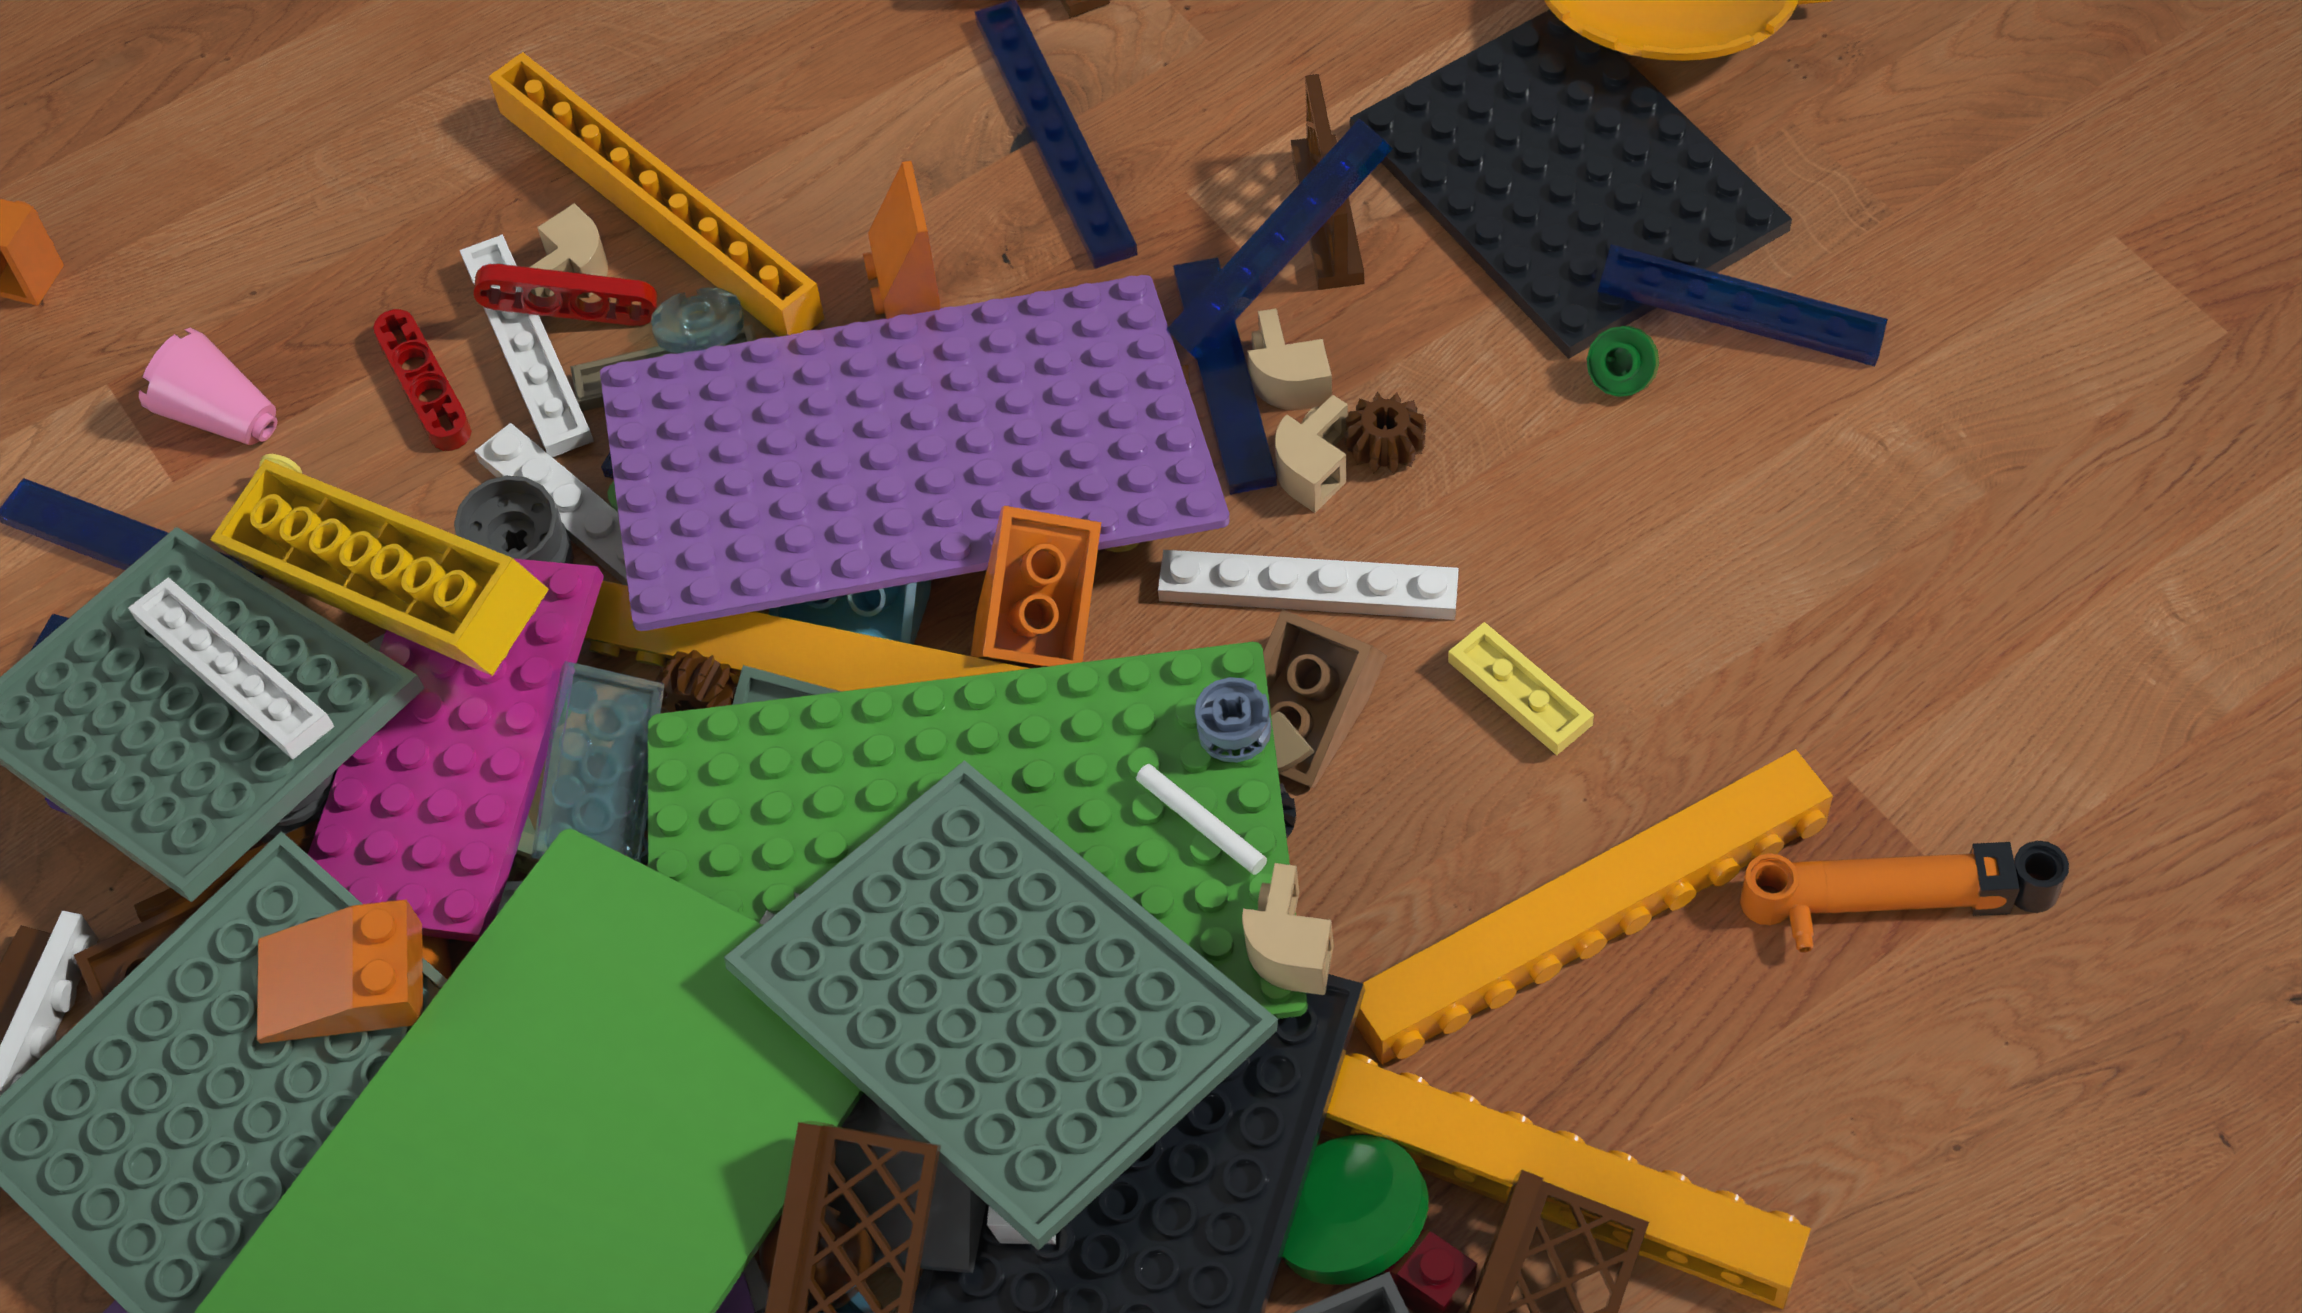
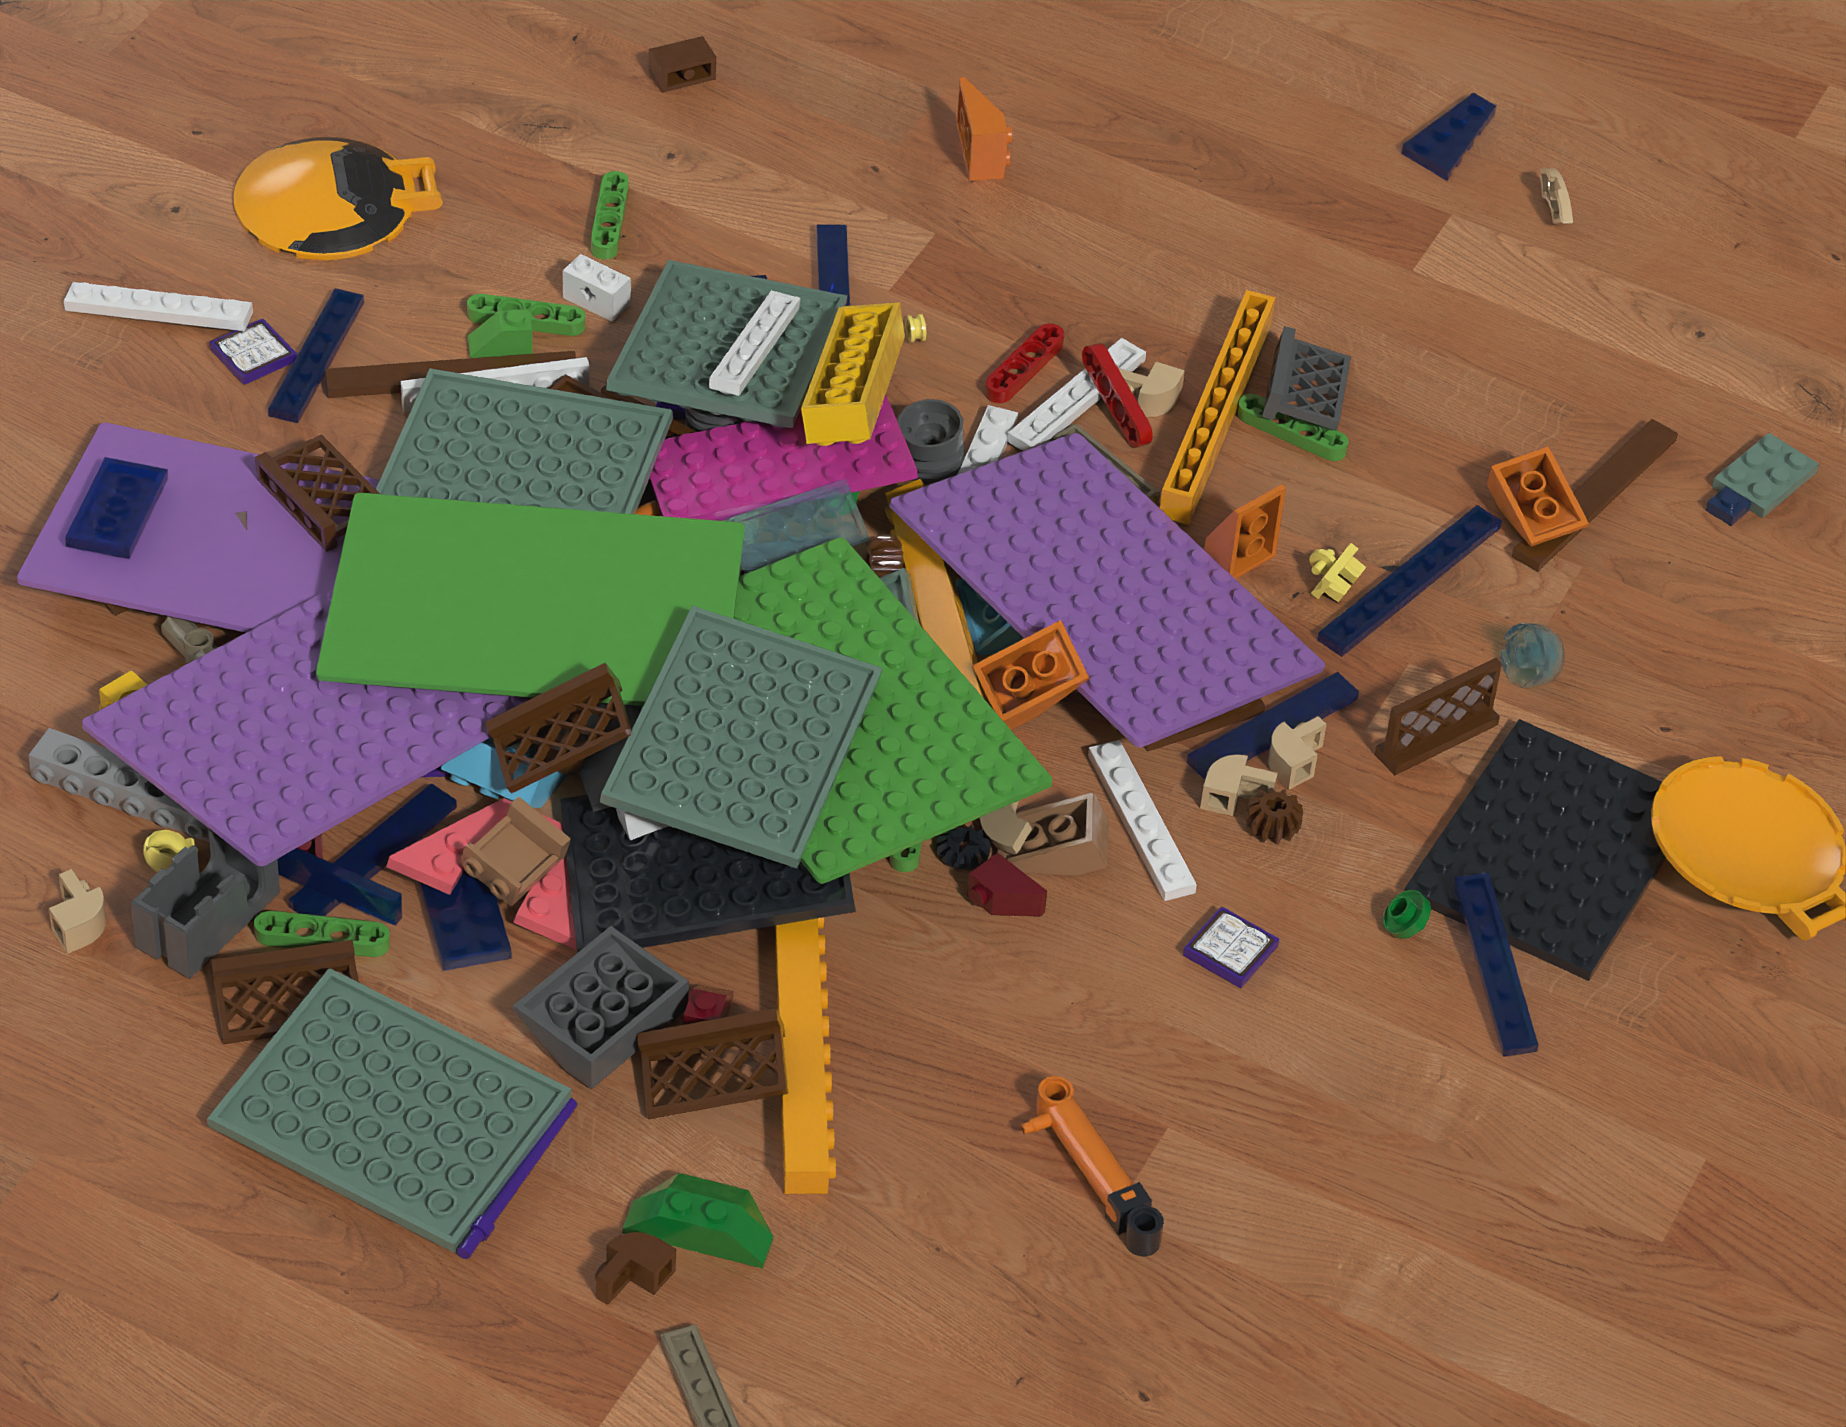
camera: 55 degrees right, 10 degrees down
(206, 390) = (948, 268): bright pink cone -> none
(341, 973) = (605, 471): orange slope -> none
(654, 109) = (1285, 375): none -> dark grey fence
(697, 321) = (1143, 464): clear light blue tile -> none
(731, 146) = (1332, 443): none -> bright green beam
(1004, 197) = (1324, 563): none -> light yellow hips
(1201, 819) = (910, 787): white bar -> none
(1235, 732) = (982, 774): sand blue wheel -> none
(1266, 58) = (1532, 655): none -> clear light blue cylinder
(1279, 239) = (1364, 694): clear blue tile -> none
(1286, 947) = (849, 842): tan brick -> none
(1356, 1211) = (726, 963): green piece -> none
(1364, 792) = (1005, 889): none -> dark red slope
(1520, 688) = (1126, 941): light yellow plate -> none
(1577, 576) = (1231, 947): none -> tile
(1590, 907) = (994, 1019): light orange brick -> none

